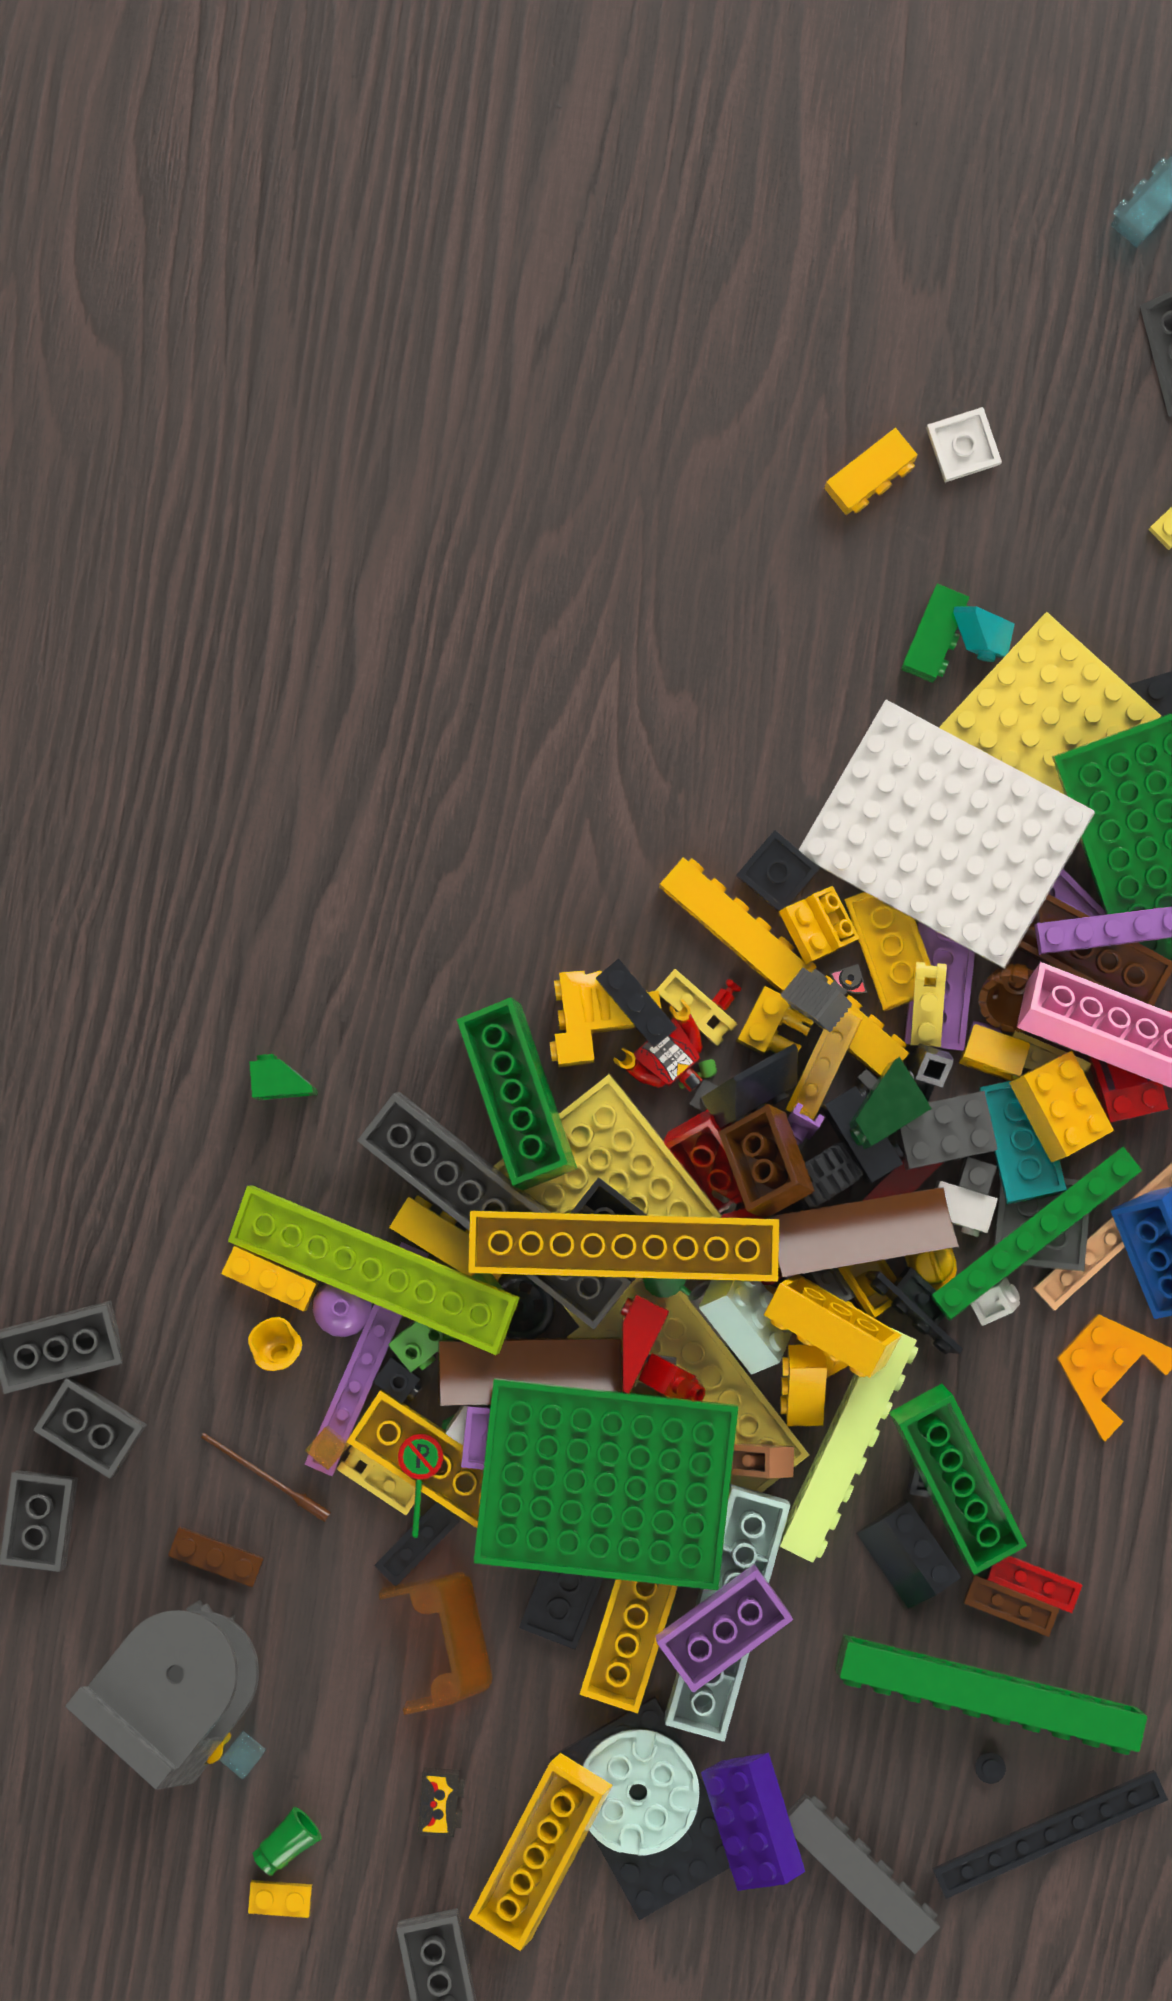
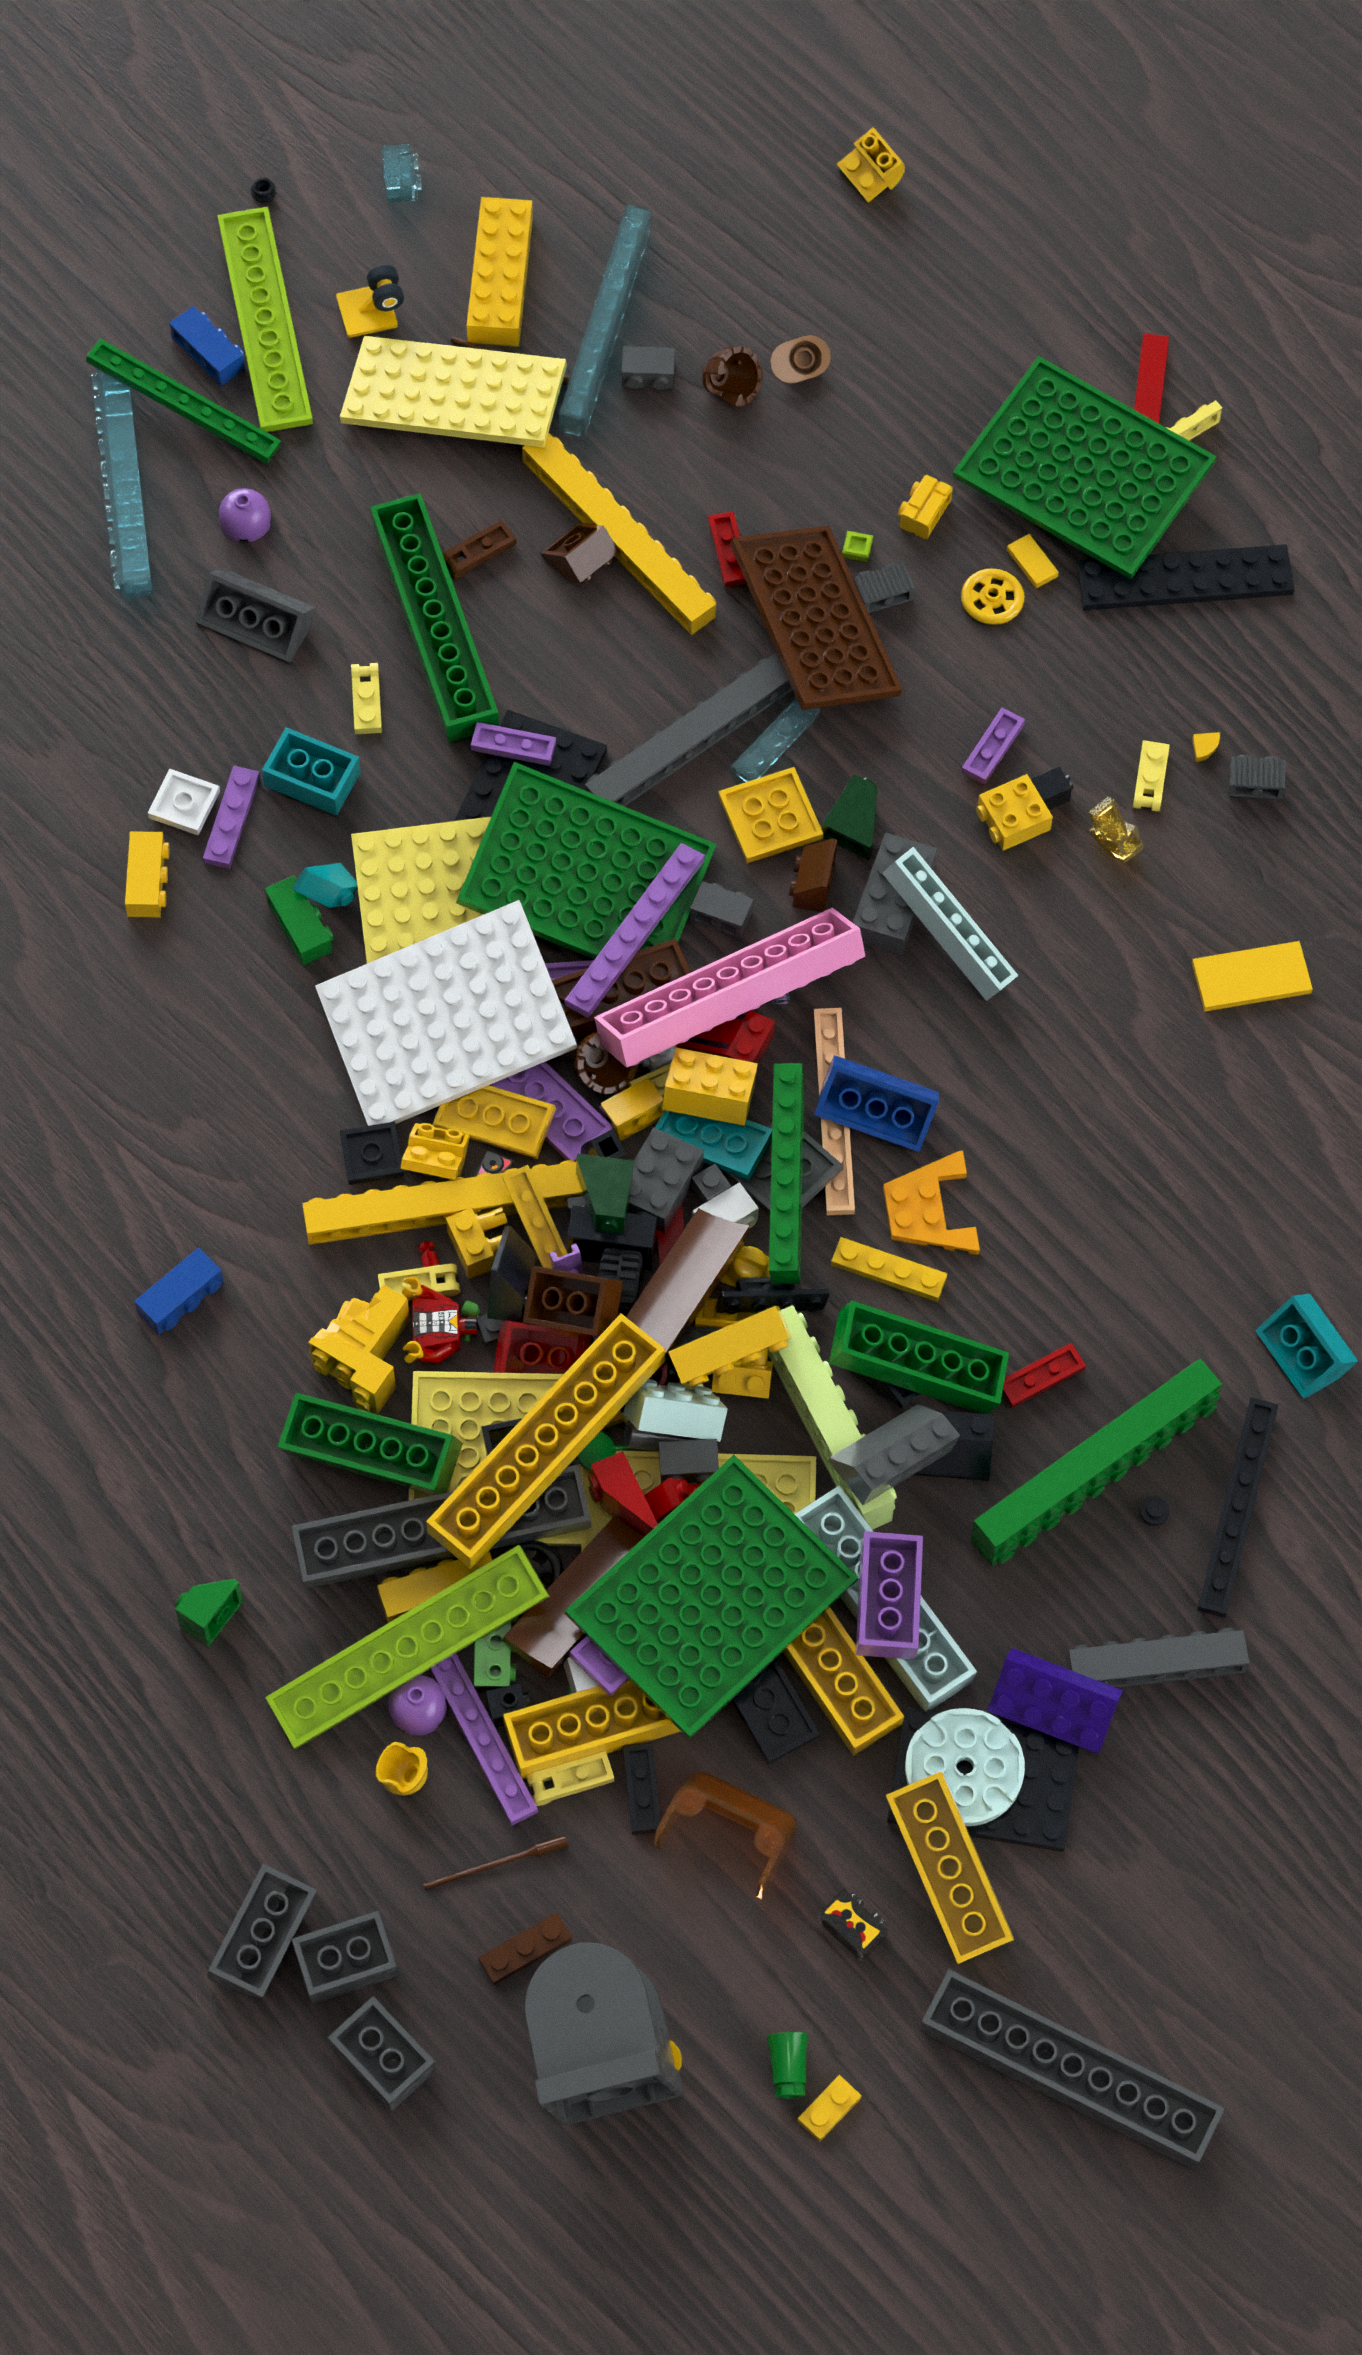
camera: 50 degrees left, 20 degrees down
(242, 1755) = (694, 2043): clear light blue brick -> none
(270, 1278) = (349, 1737): yellow brick -> none
(327, 1447) = (513, 1787): clear yellow brick -> none
(420, 1459) = (580, 1723): piece -> none
(529, 822) = (179, 1291): none -> blue brick
(636, 1003) = (378, 1304): black plate -> none
(713, 1362) = (688, 1460): none -> dark grey brick
(763, 1460) = (794, 1481): nougat slope -> none
(803, 1385) = (760, 1411): yellow brick -> none
(816, 998) = (486, 1183): dark grey brick -> none
(853, 1529) = (894, 1452): none -> dark grey slope
(928, 1005) = (558, 1119): light yellow plate -> none
(984, 495) = (231, 817): none -> medium lavender plate
(997, 1302) = (814, 1245): white bracket -> none
(1010, 1605) = (1045, 1404): reddish brown plate -> none
(1026, 1379) = (889, 1269): none -> yellow plate
(1078, 527) = (311, 771): none -> teal brick

